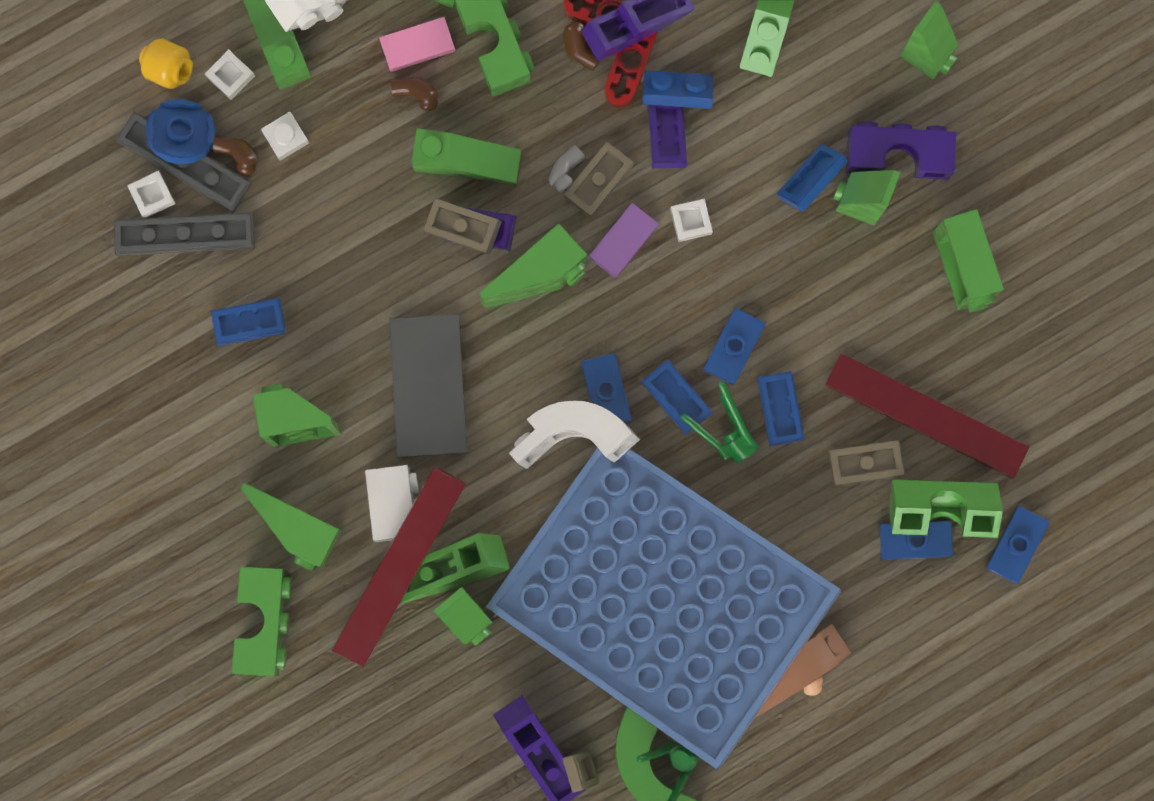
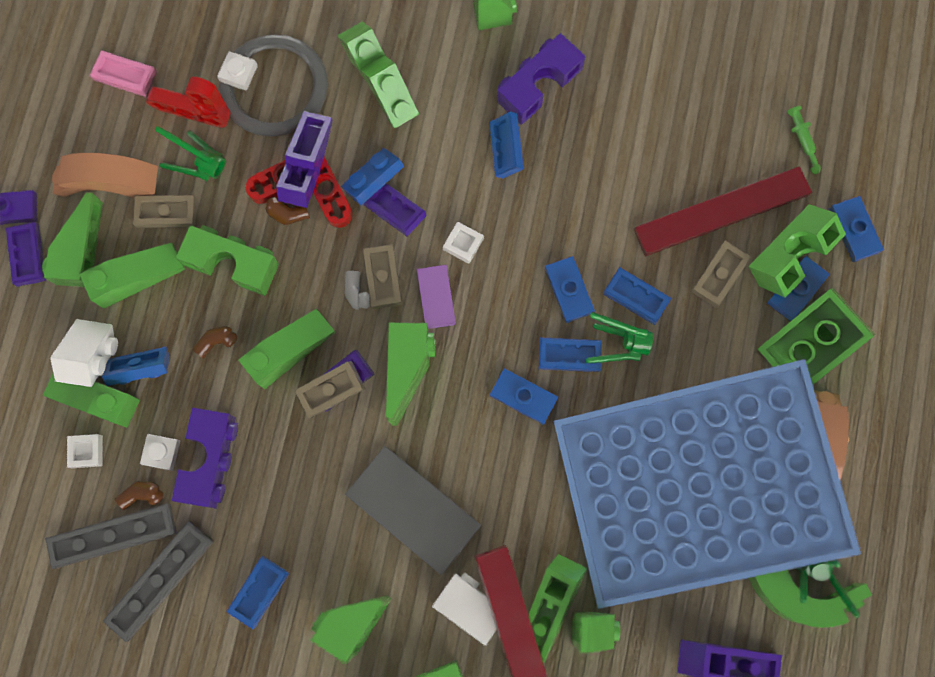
camera: 40 degrees left, 5 degrees down
(151, 194) = (110, 579): white plate -> none
(166, 63) = (35, 487): yellow head -> none
(180, 131) = (88, 519): blue tile -> none
(292, 197) = (205, 485): none -> dark purple arch
(336, 49) = (136, 366): none -> blue plate
(417, 44) = (185, 312): bright pink tile -> none
(573, 420) = (526, 432): white arch -> none
(580, 771) = (768, 647): dark tan tile -> none
(866, 194) = (552, 116): bright green slope -> none
(884, 594) = (820, 334): none -> bright green slope
(968, 261) = (650, 96): bright green window -> none
(1062, 428) = (804, 136): none -> bright green piece

